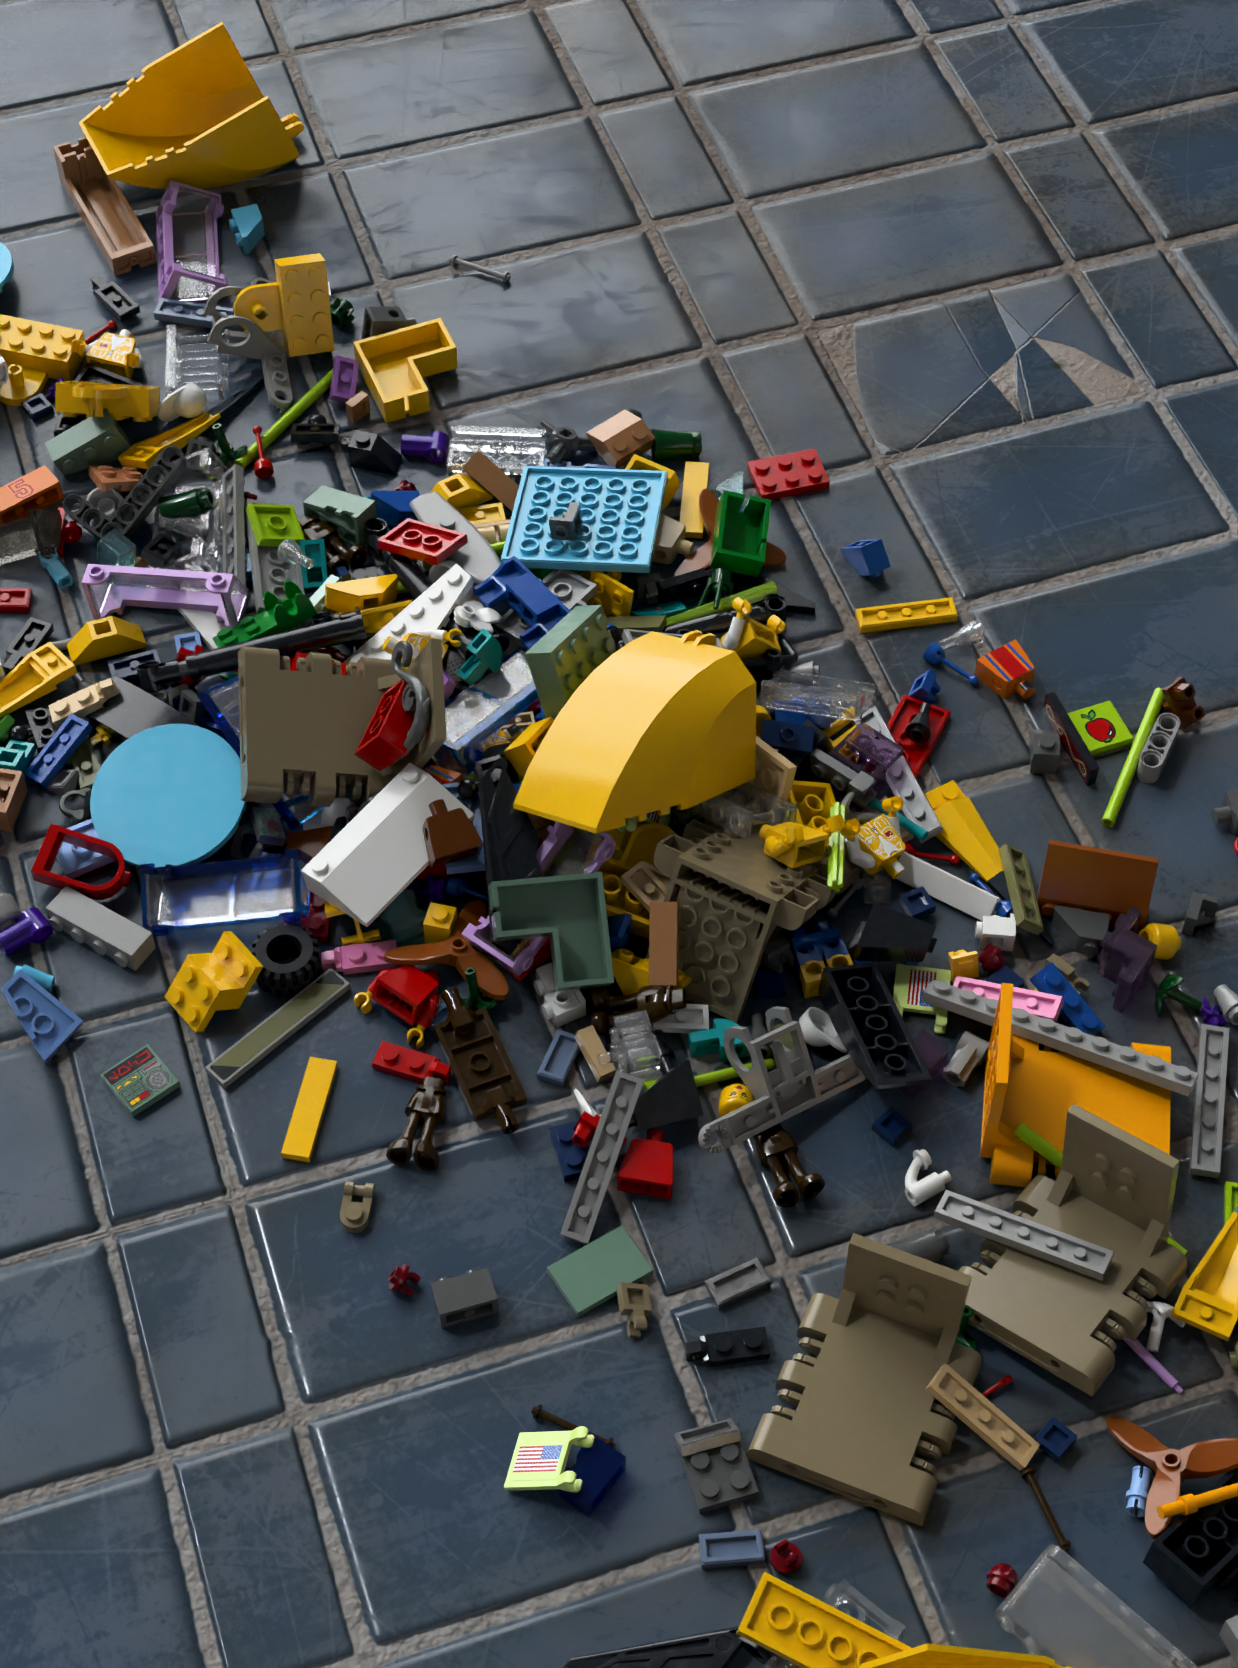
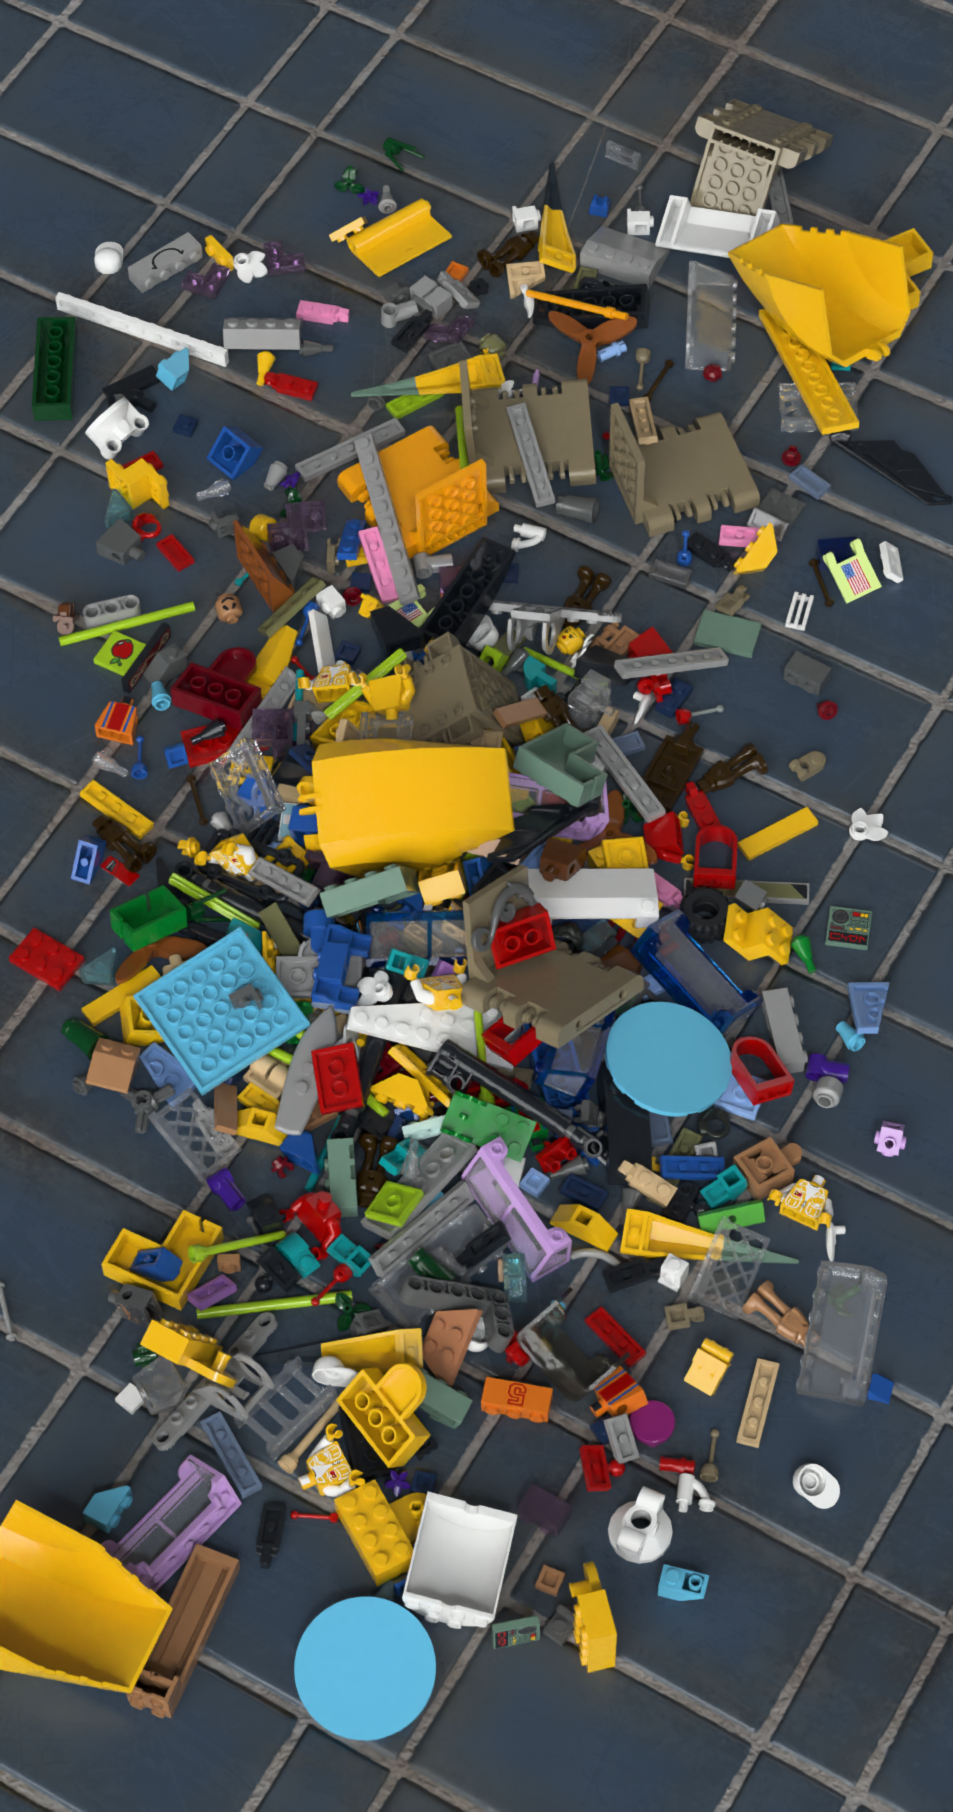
camera: 130 degrees left, 5 degrees up
(153, 343) = (289, 1461): none -> tan piece
(163, 1018) = (802, 947): none -> green cone
(225, 1199) = (868, 824): none -> white plate
(253, 997) = (751, 896): none -> dark grey brick
(264, 480) = (349, 1254): none -> teal brick
(316, 447) = (296, 1252): none -> teal brick
(316, 991) = (715, 877): none -> red window
(326, 472) = (319, 1216): none -> red torso
(374, 368) = (198, 1253): none -> lime piece
(395, 354) = (157, 1264): none -> blue slope
(411, 926) = (625, 853): none -> yellow plate
(508, 999) = (626, 775): none -> light grey plate
(523, 1525) = (891, 562): none -> white plate
(535, 1137) = (683, 715): none -> hinge
(544, 1350) = (802, 598): none -> white tile
(668, 1379) = (759, 553): none -> yellow slope
(687, 1153) = (620, 639): none -> medium nougat plate
(706, 1096) = (586, 643): none -> white plate
(713, 1397) = (737, 535): none -> bright pink hinge
(747, 1309) = (684, 553): none -> blue hinge
(777, 998) = (499, 657): none -> lime brick
(801, 633) = (190, 847): none -> yellow plate
(825, 666) = (190, 779): none -> dark brown axle
(834, 579) = (118, 870): none -> red sticker
(871, 591) = (118, 834): none -> dark brown piece
(966, 752) = (221, 689): none -> dark red brick
(1011, 721) = (160, 697): none -> medium azure cone
(1073, 834) = (228, 608): none -> medium nougat head
(1097, 1519) = (642, 357): none -> dark tan hinge
(1198, 854) = (175, 552): none -> red tile

